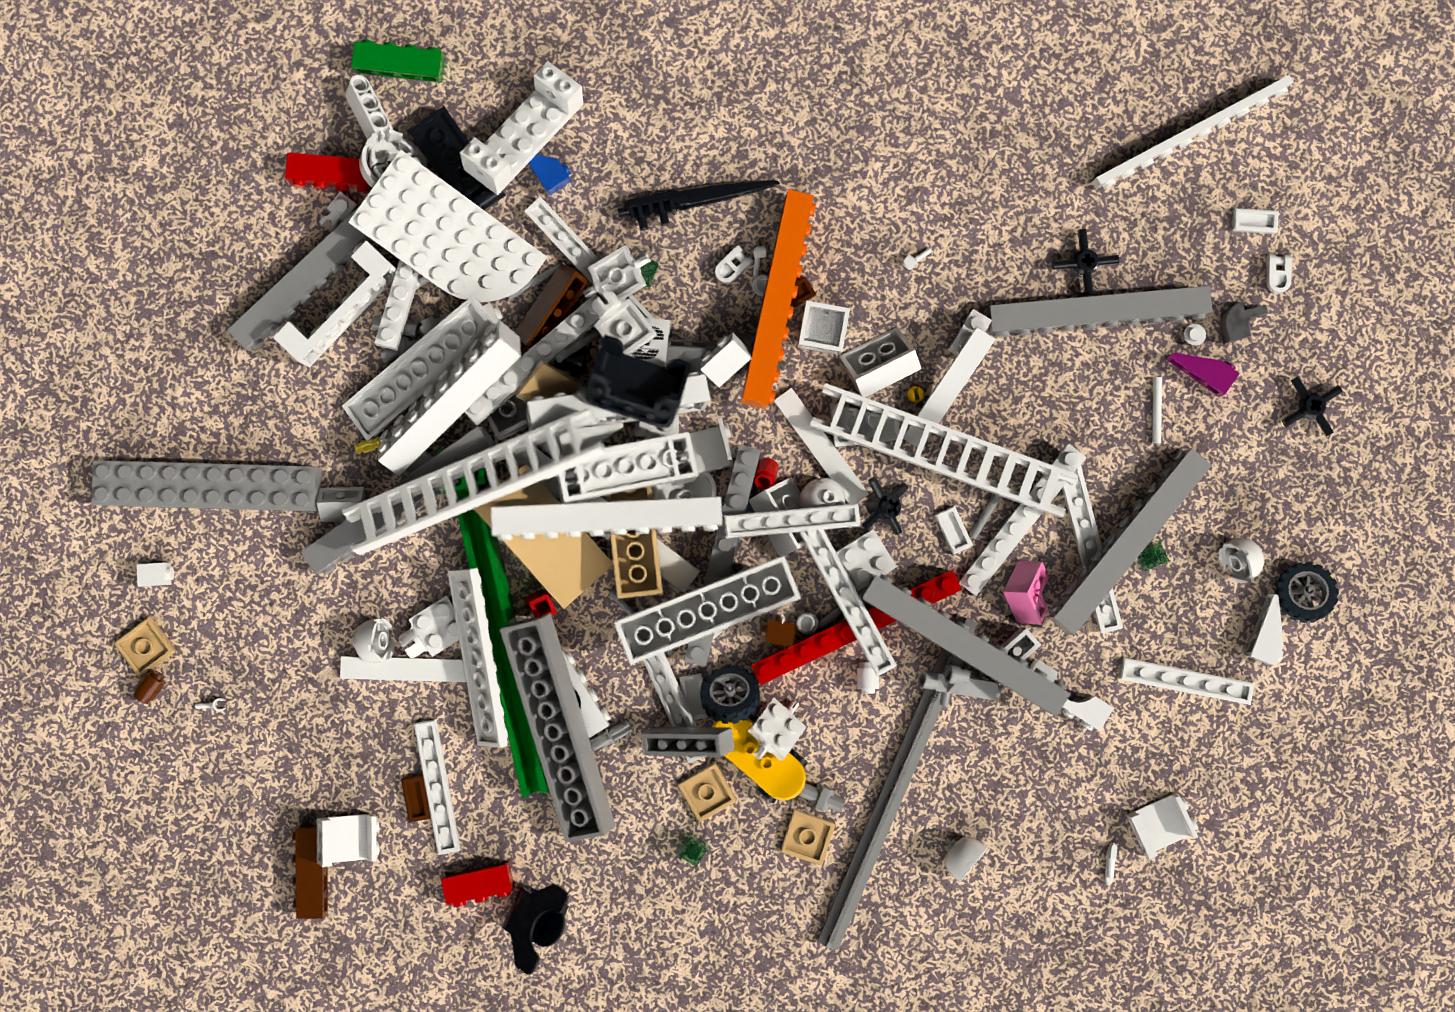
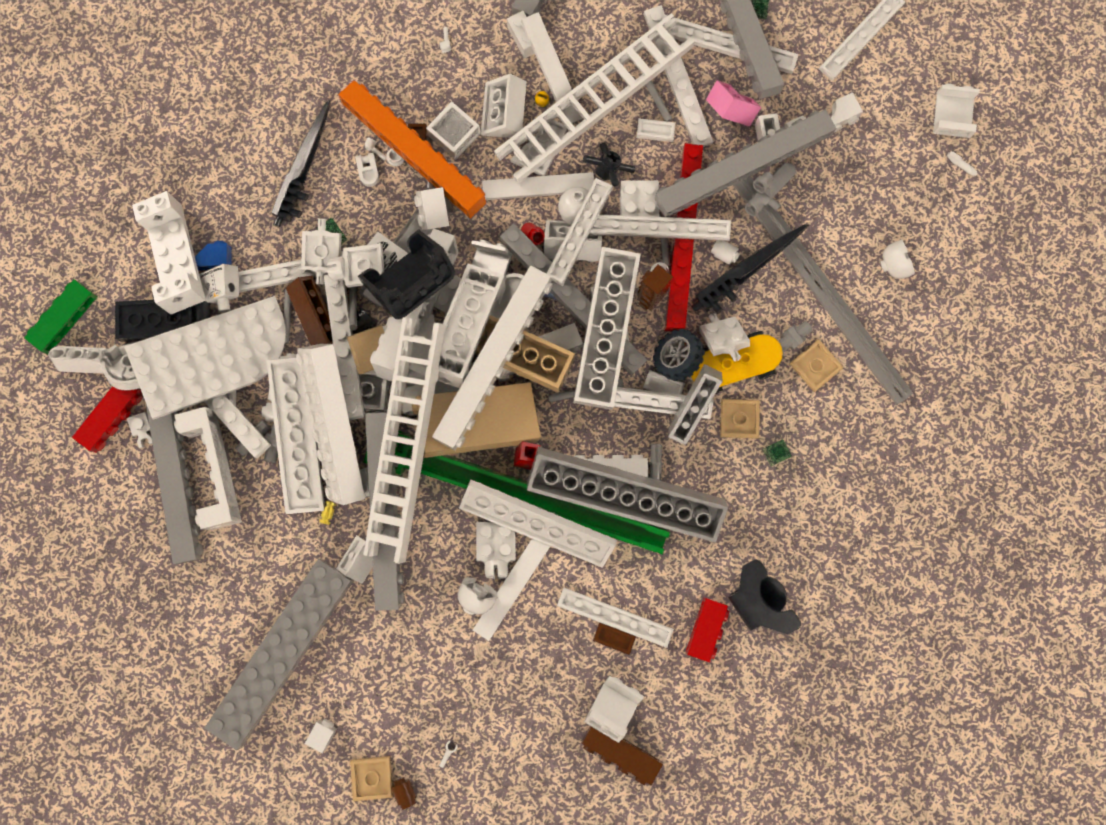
camera: 55 degrees left, 5 degrees down
(522, 199) = (220, 285): none -> white torso
(835, 698) = (741, 272): none -> black piece

